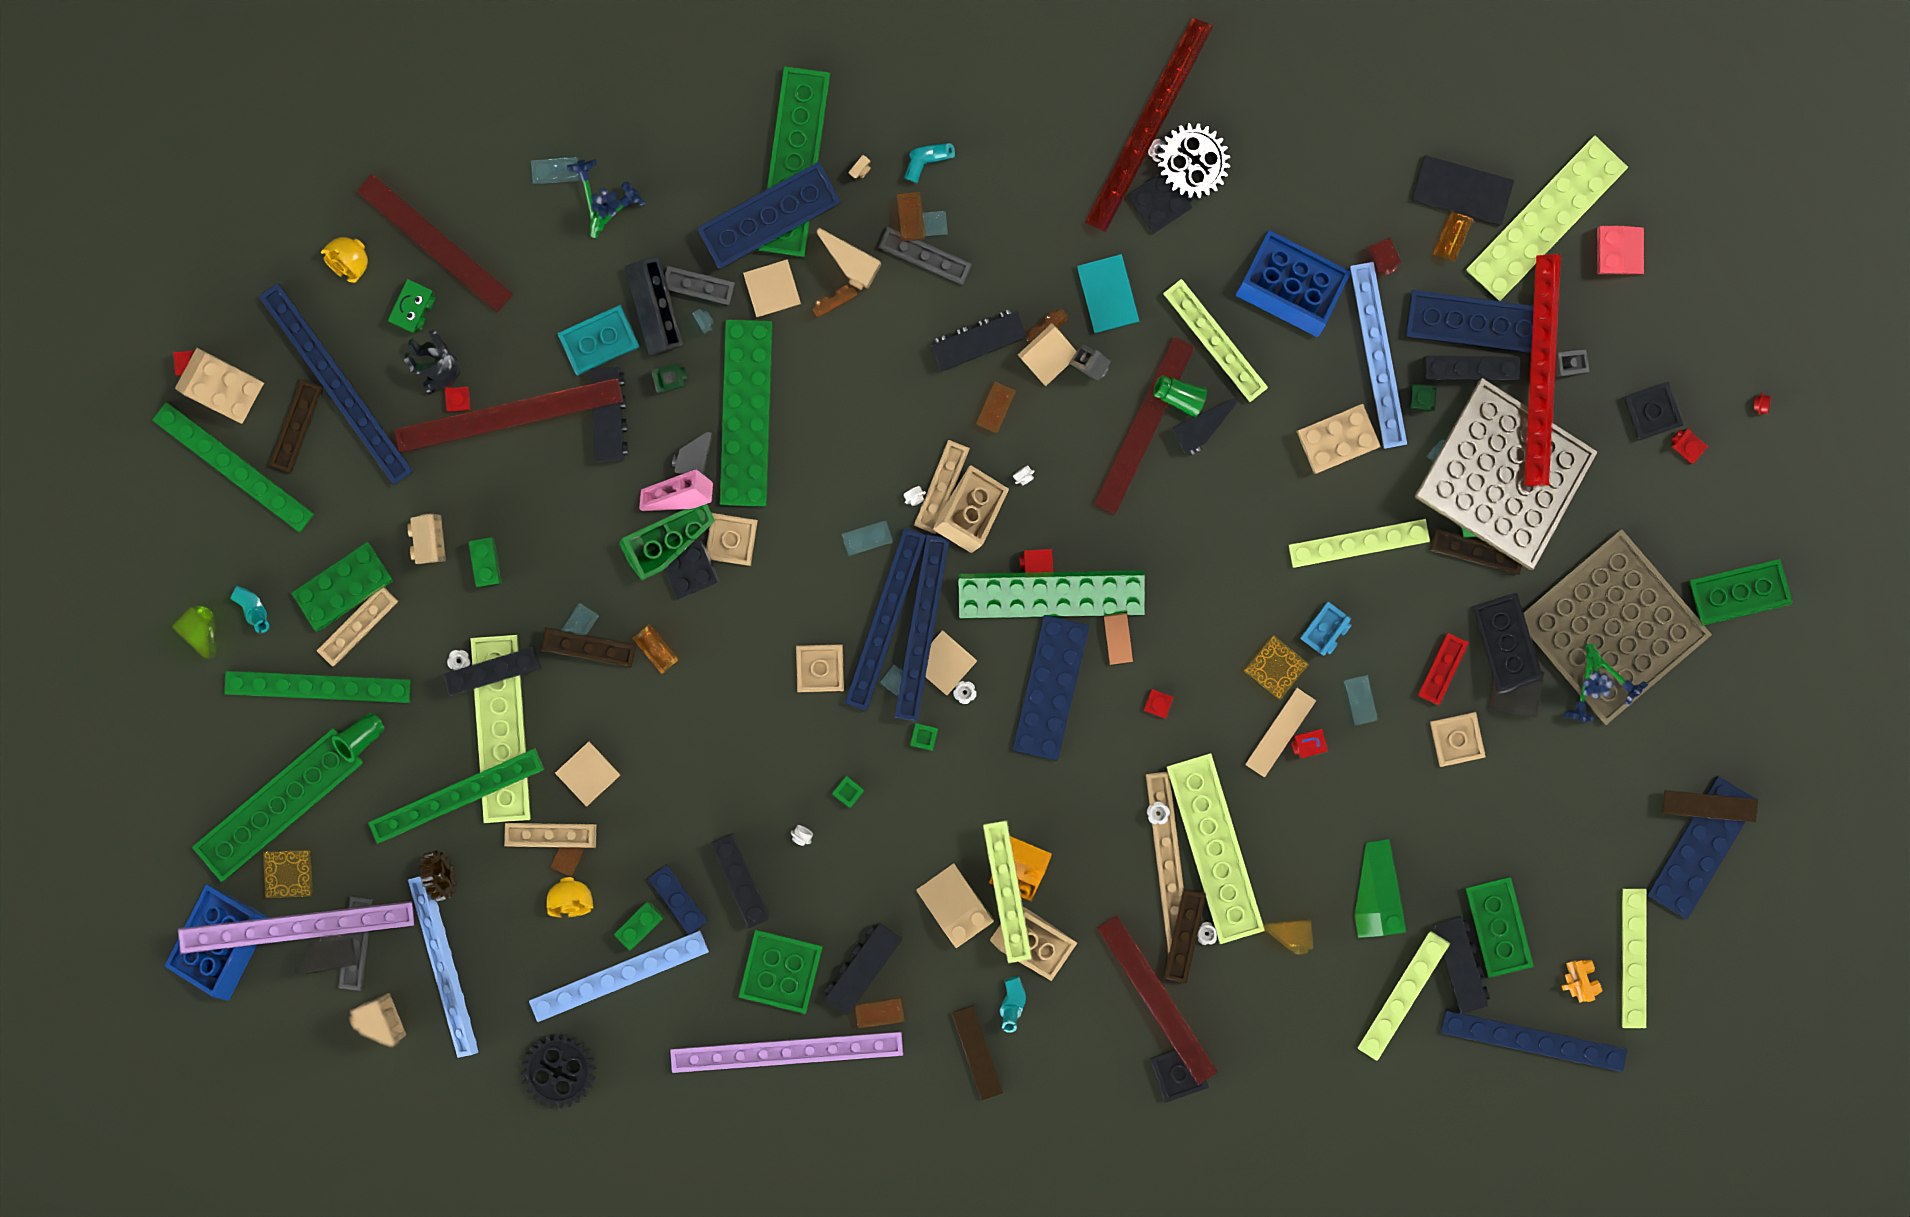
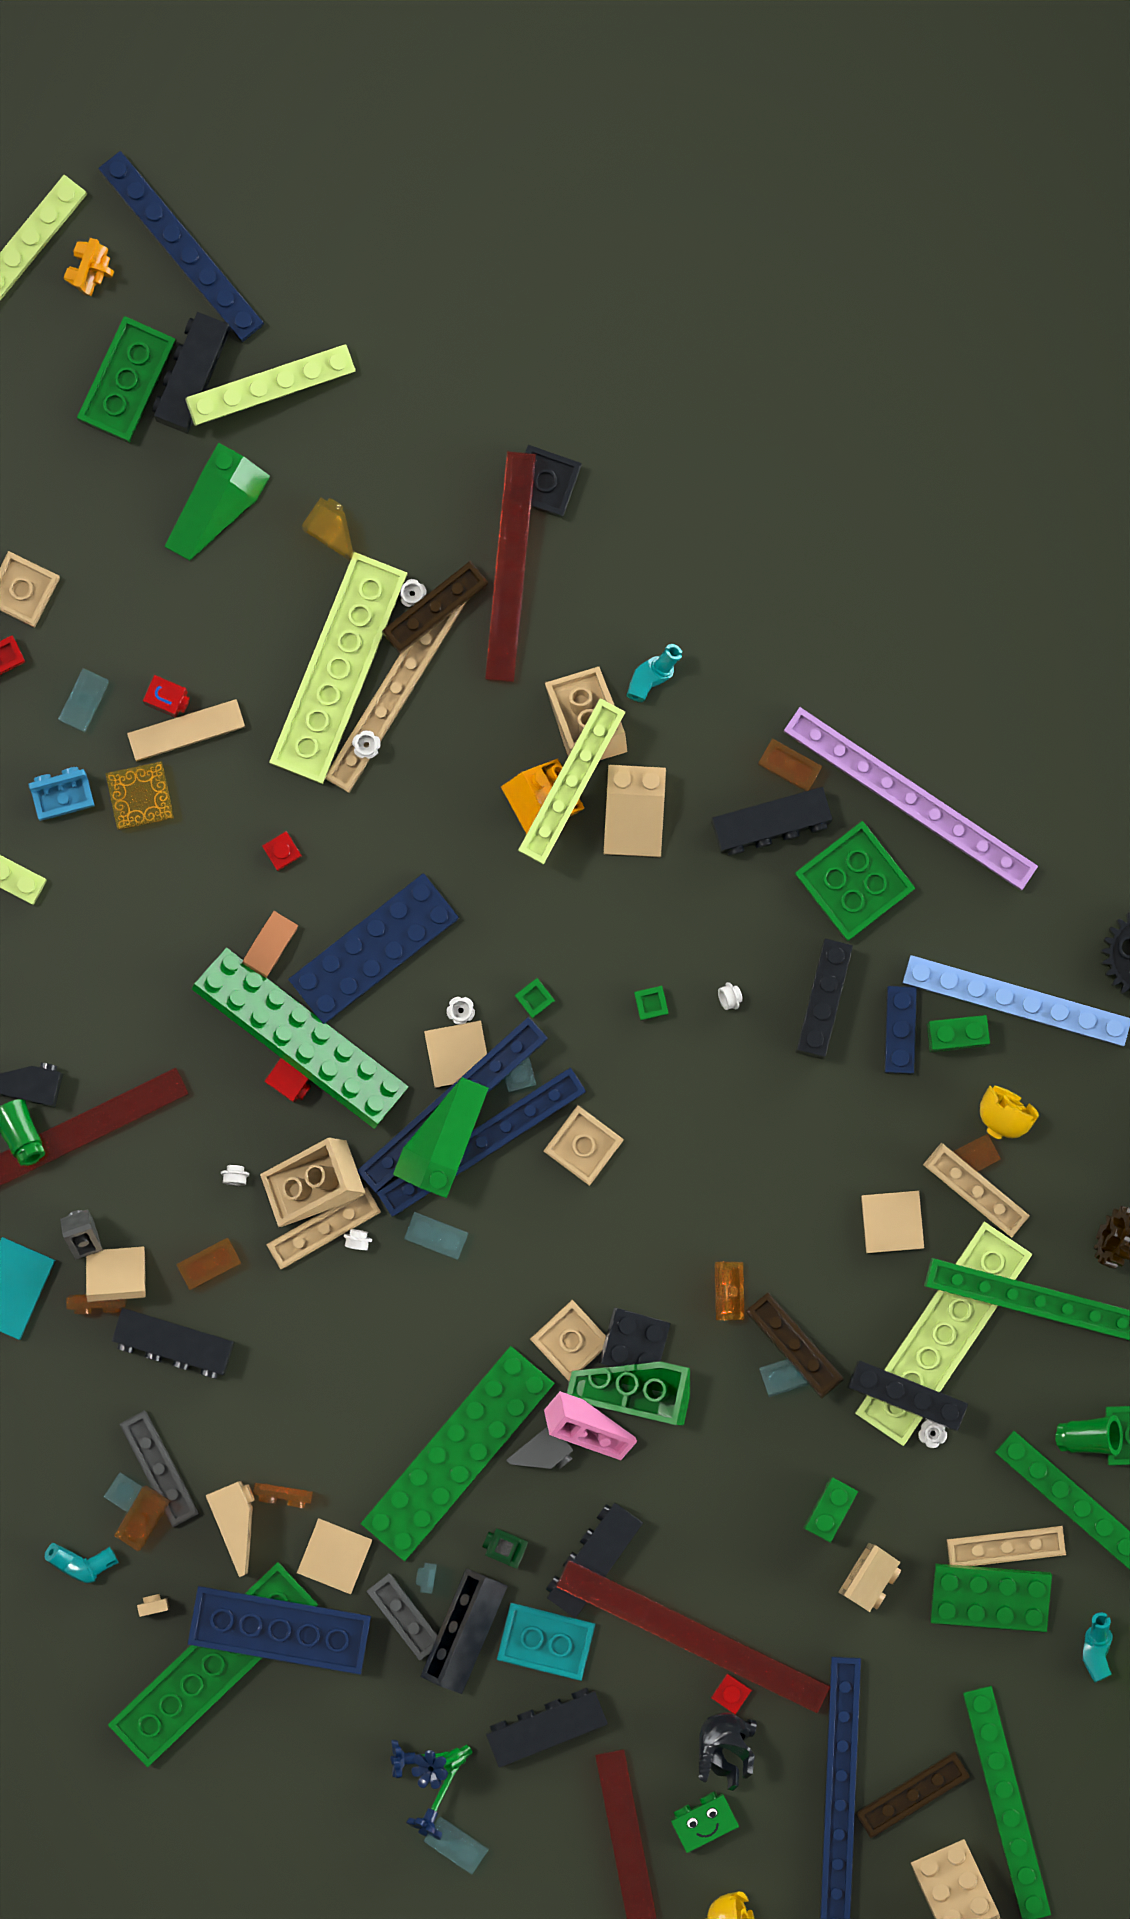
camera: 150 degrees left, 5 degrees down
(555, 287) = (546, 1728): none -> black brick
(909, 596) = (438, 1146): none -> green wedge
(977, 1052) = (725, 653): dark brown tile -> none

